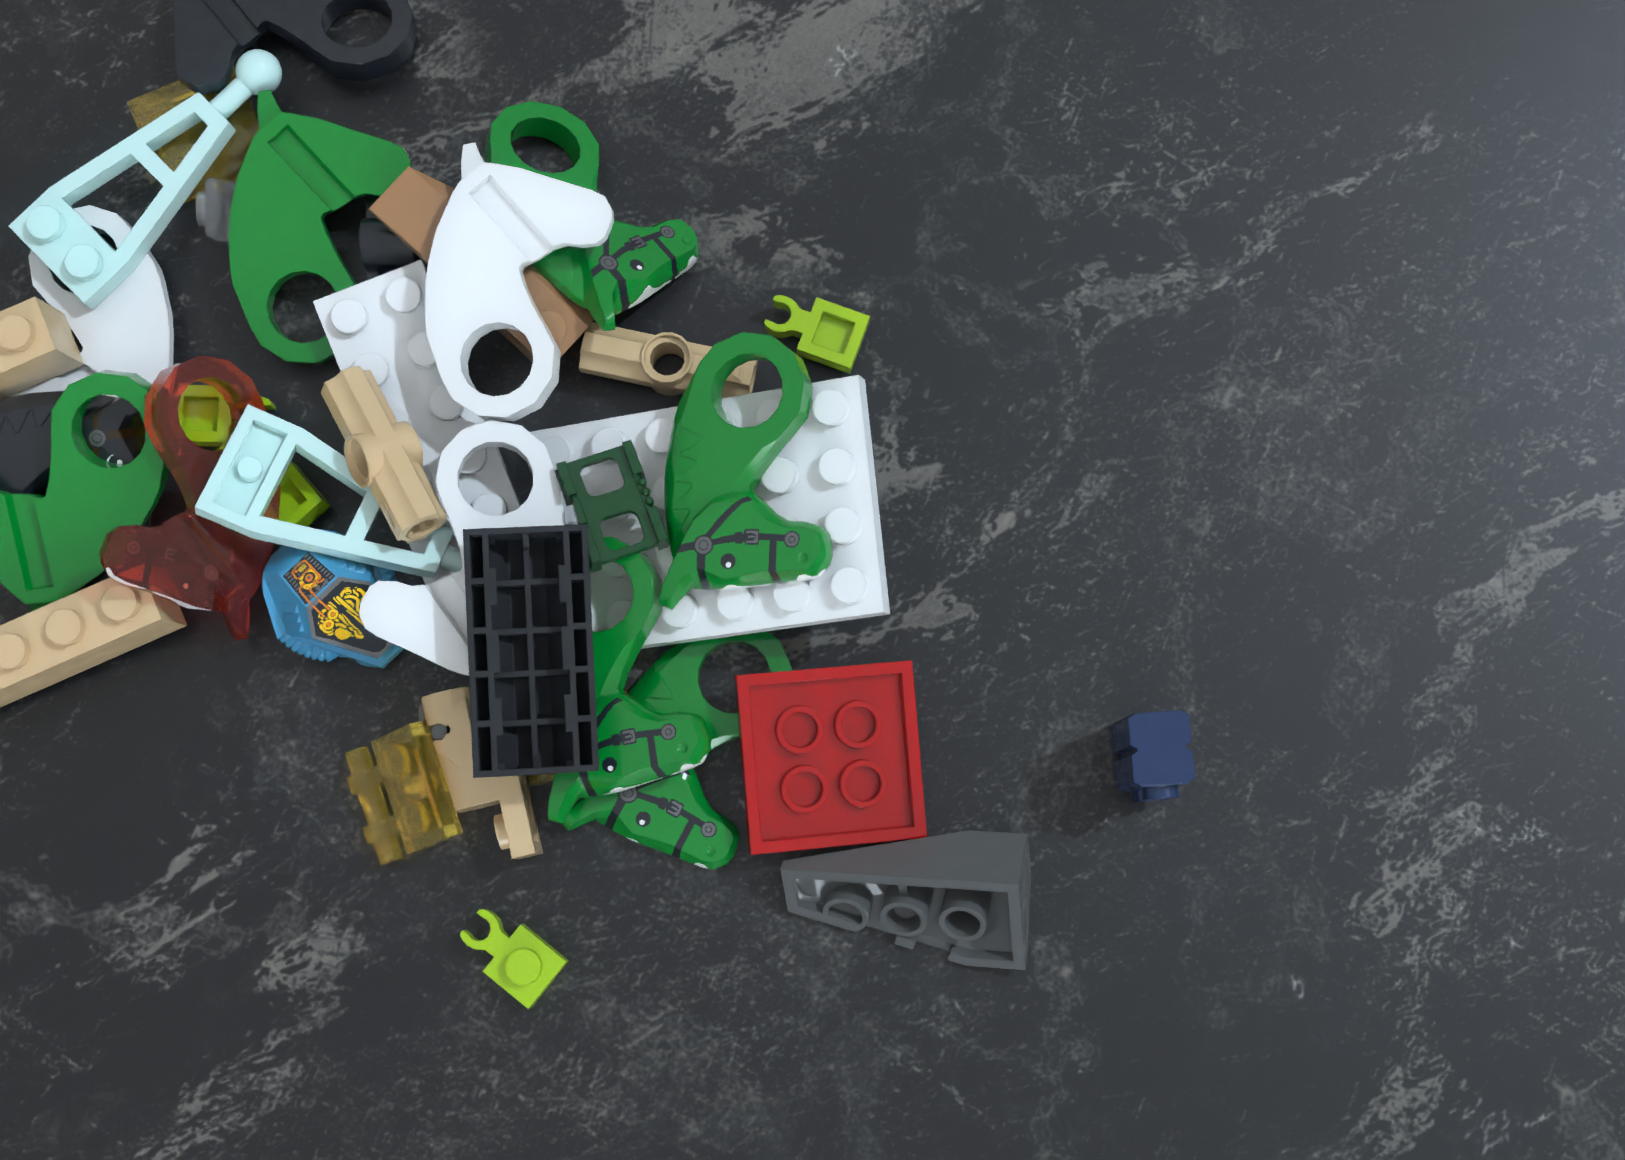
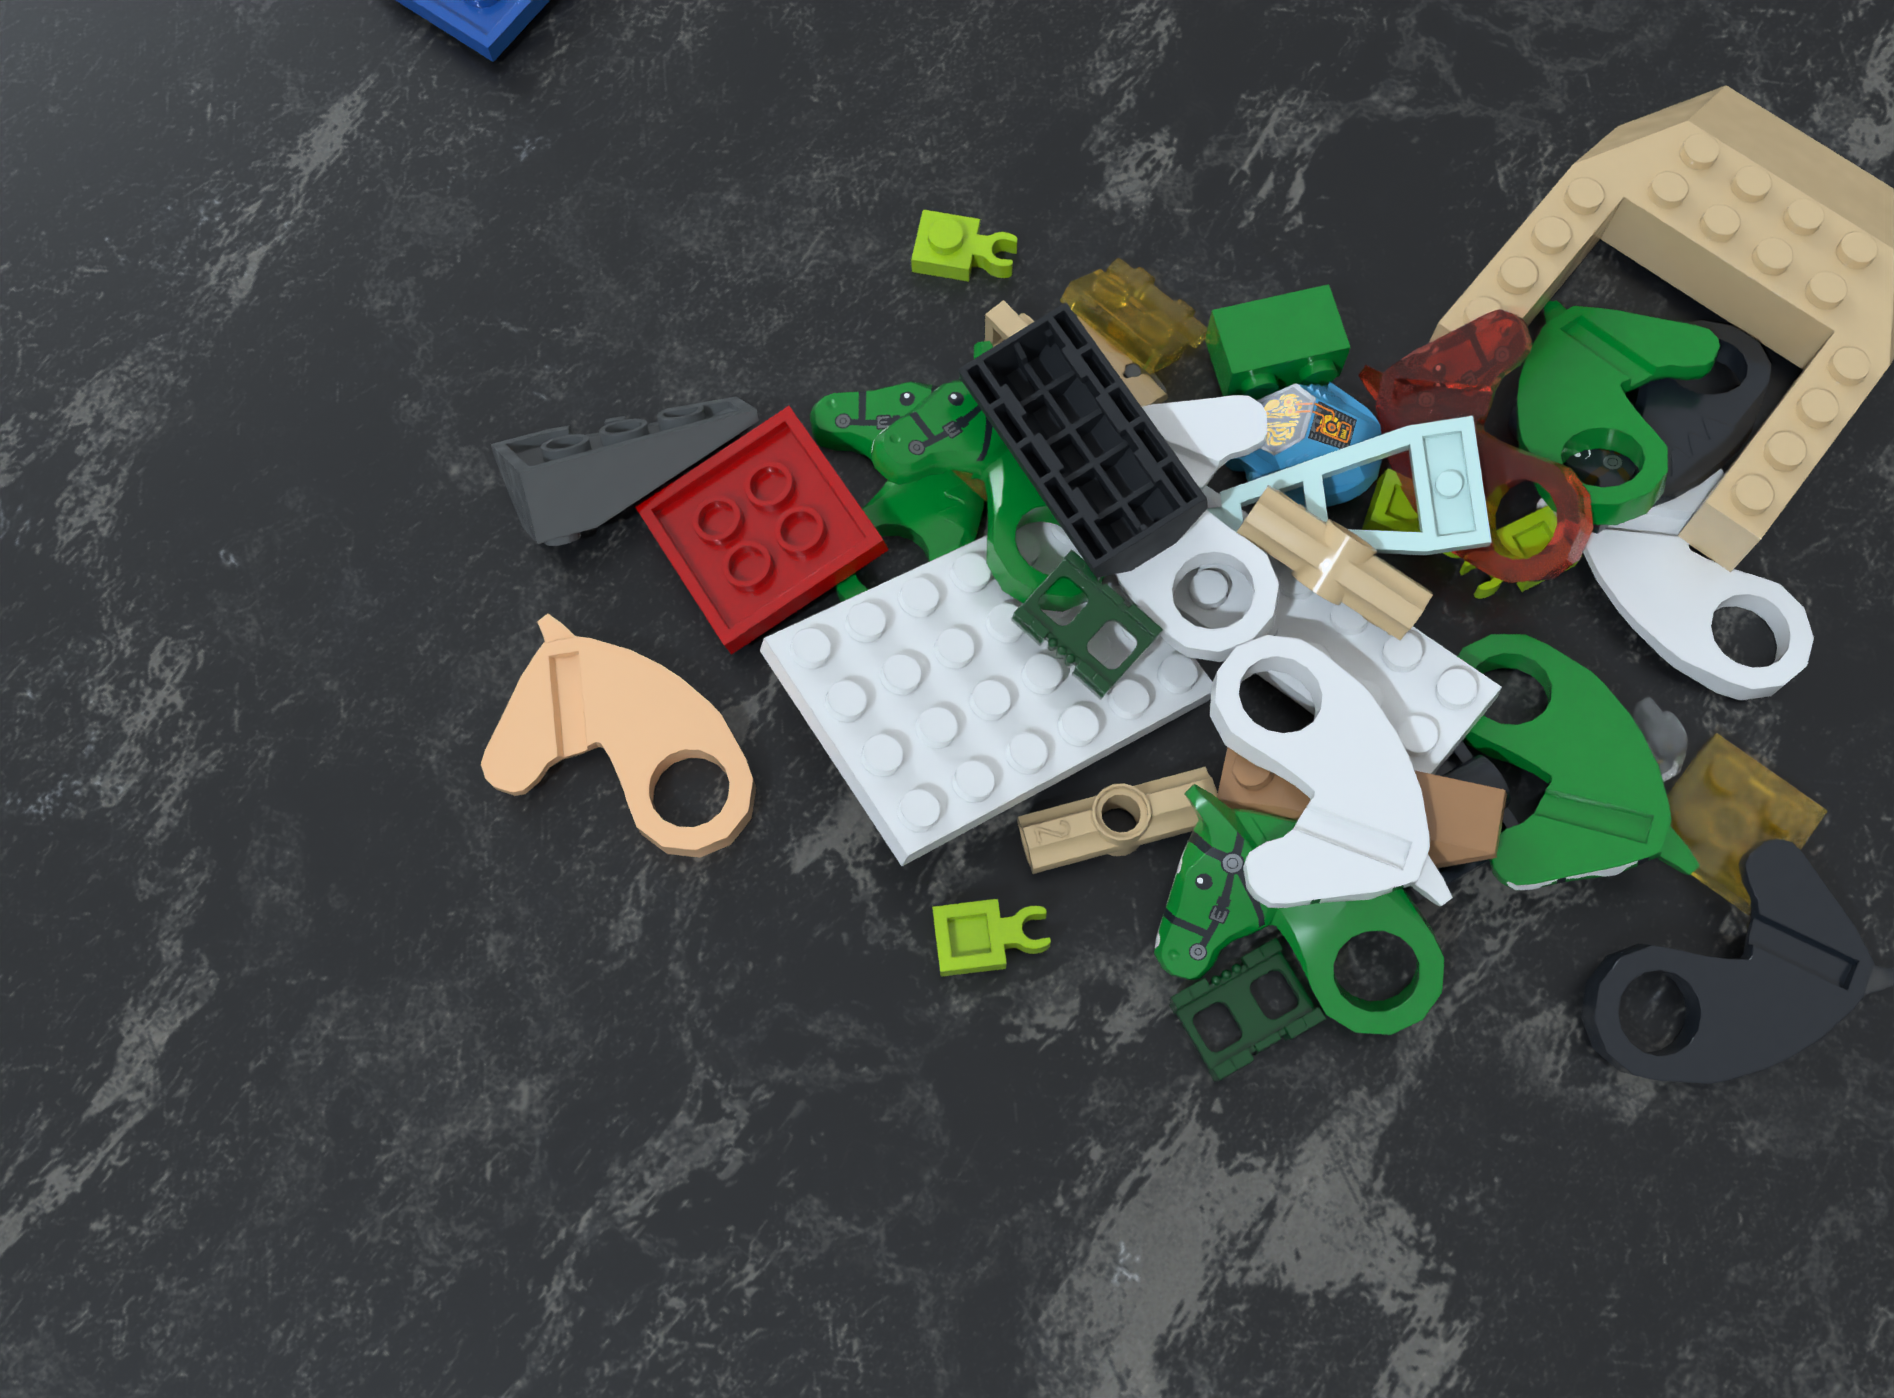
camera: 155 degrees right, 10 degrees down
(75, 248) = (1773, 634): light aqua plate -> none
(299, 698) = (1277, 343): none -> green brick
(654, 162) = (1233, 991): none -> dark green piece
(714, 520) = (1000, 698): green animal -> none
(1032, 682) = (642, 714): none -> light nougat animal
(1152, 754) = (445, 668): dark blue brick -> none

